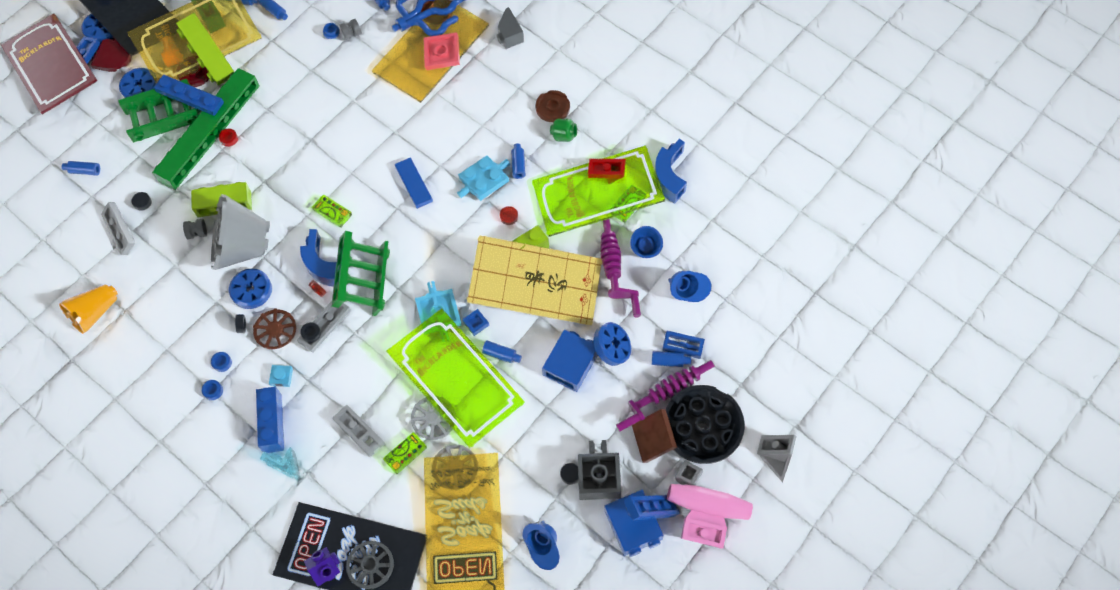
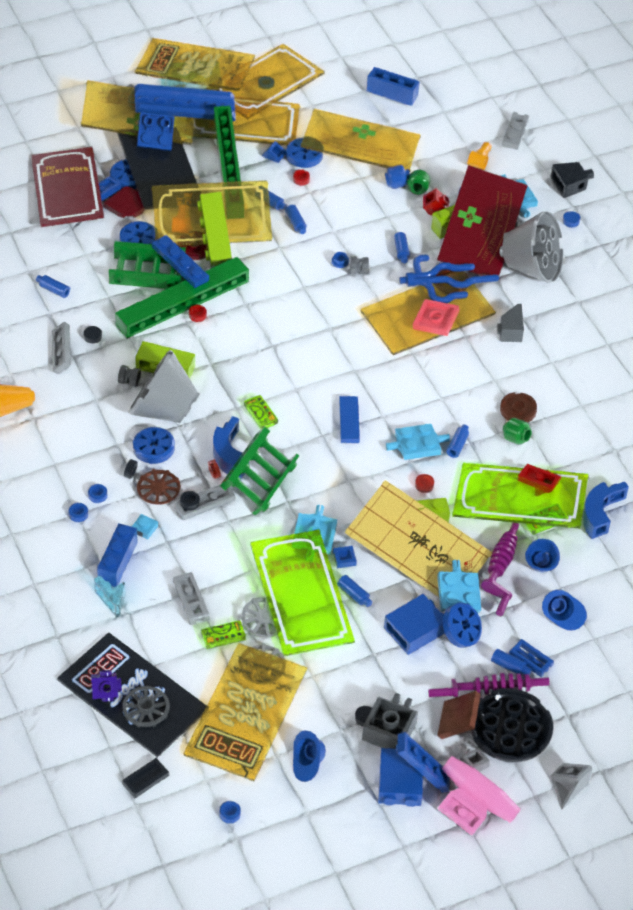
camera: 20 degrees right, 15 degrees down
(591, 309) = (458, 587): none -> medium azure plate

